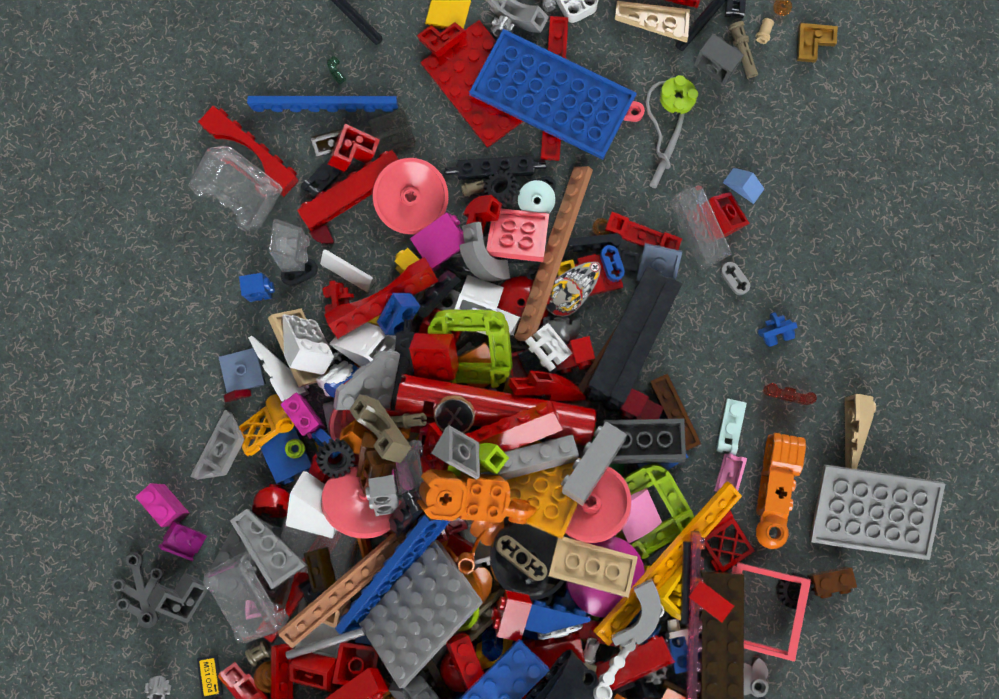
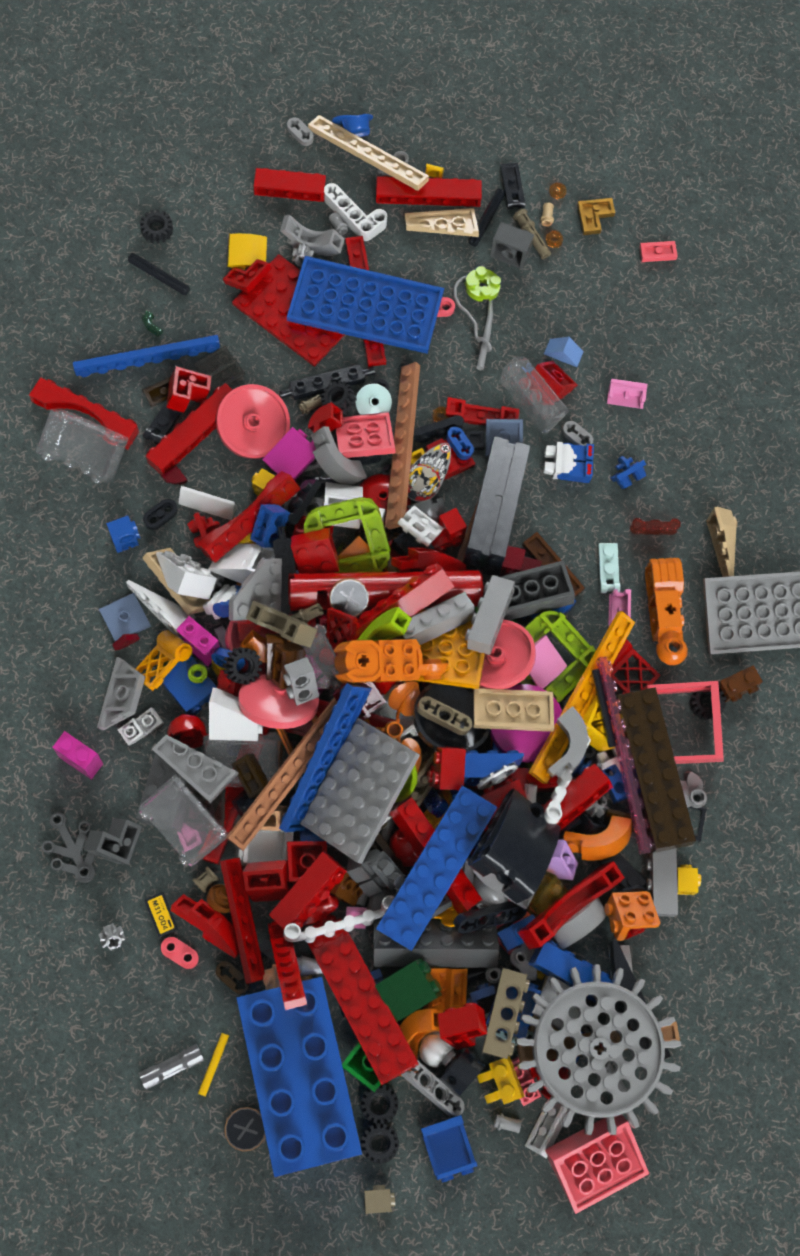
camera: 25 degrees left, 10 degrees down
(182, 541) = (105, 787): magenta plate -> none
(232, 484) = (141, 726): none -> white slope
(289, 246) = (147, 489): clear slope -> none
(325, 643) = (273, 845): light grey bar -> none
(405, 515) = (326, 693): black plate -> none
(458, 451) = (364, 620): light grey slope -> none
(711, 601) = (632, 714): red slope -> none
(720, 306) = (570, 462): none -> hips
(765, 54) = (554, 234): none -> clear orange plate
(797, 245) = (627, 393): none -> bright pink hinge
(871, 95) = (658, 251): none -> coral plate

